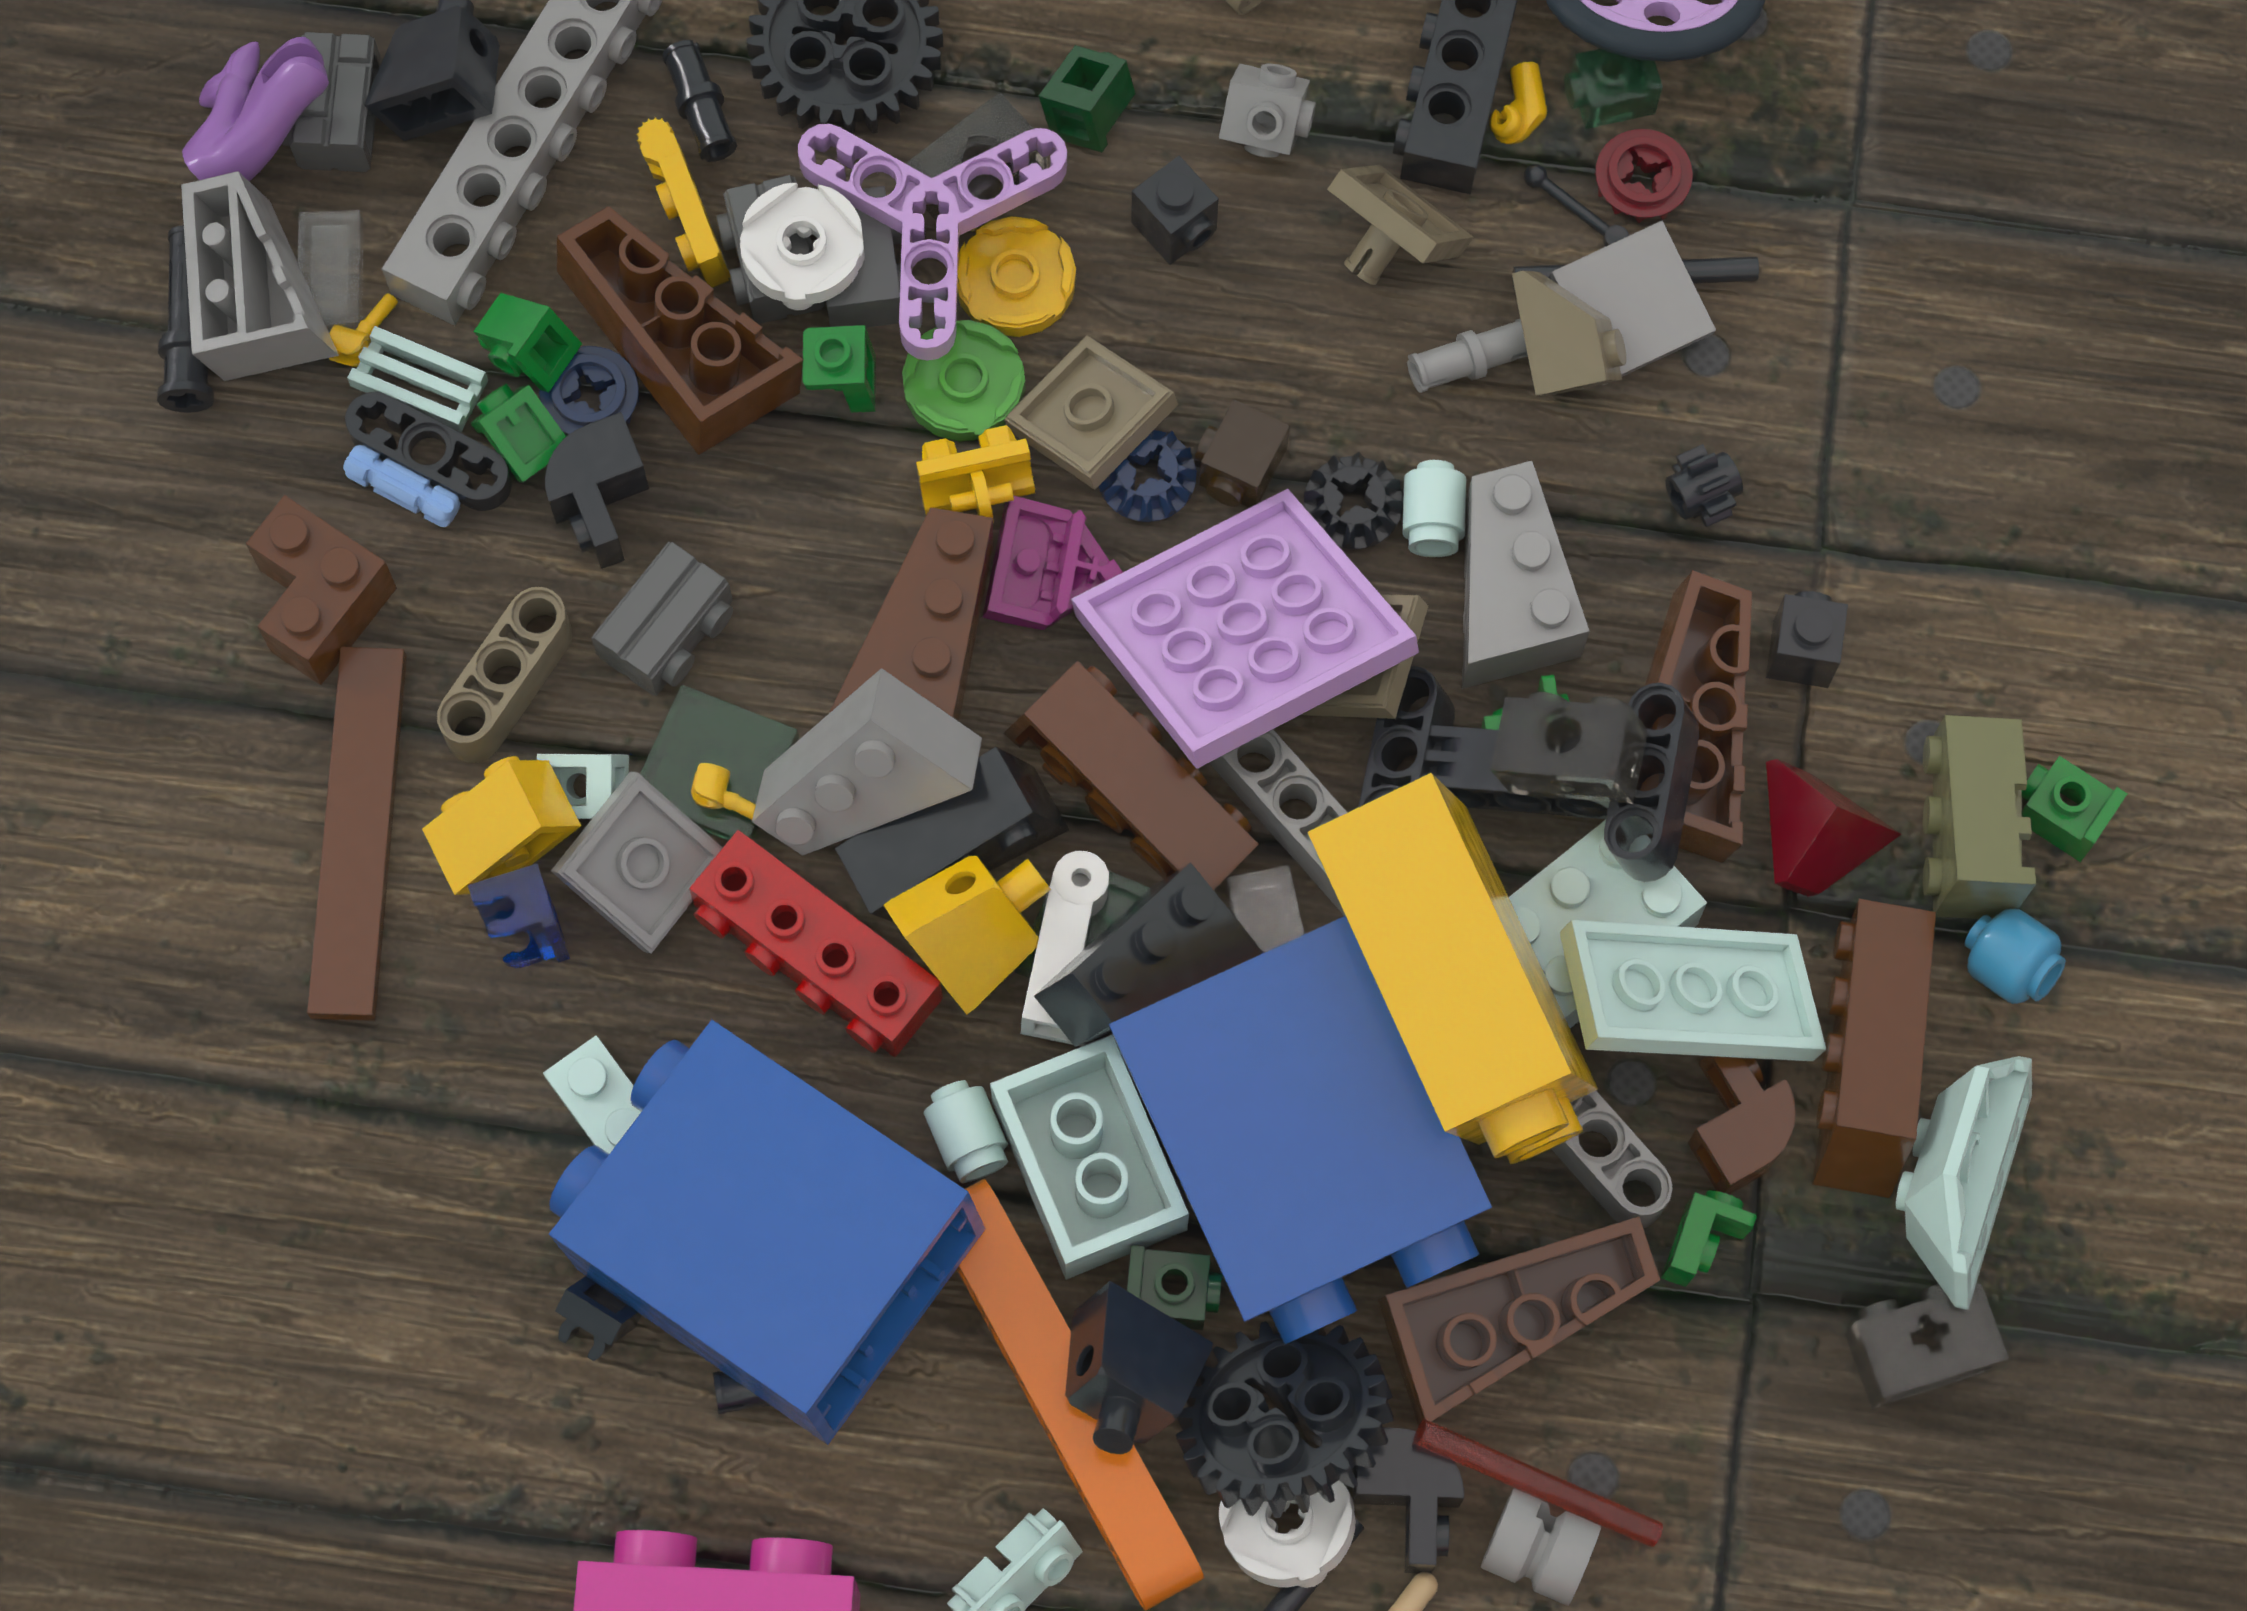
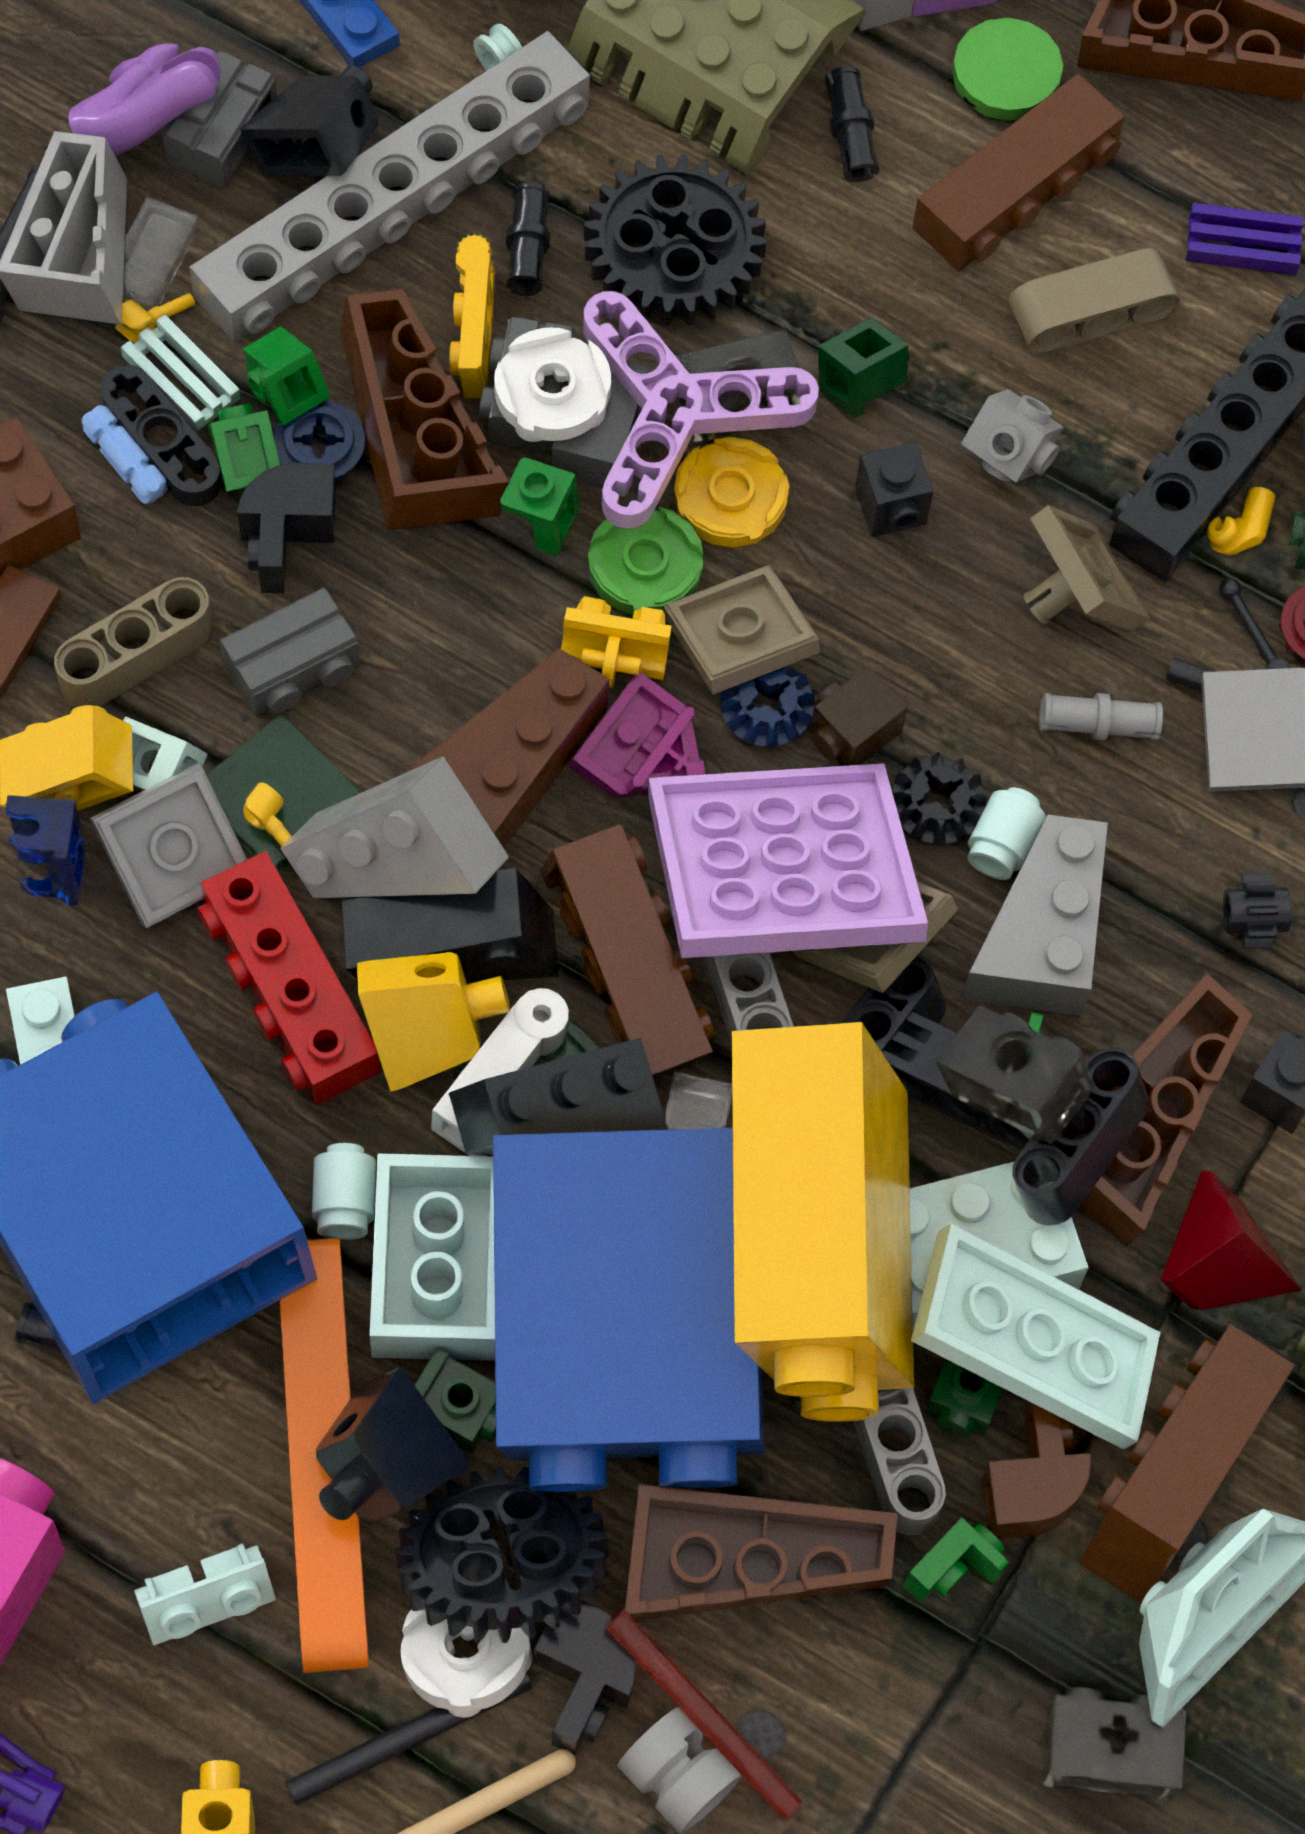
camera: 20 degrees right, 5 degrees down
(1565, 338) = (1187, 732): dark tan slope -> none
(1637, 1088) = (961, 1410): none -> dark green brick

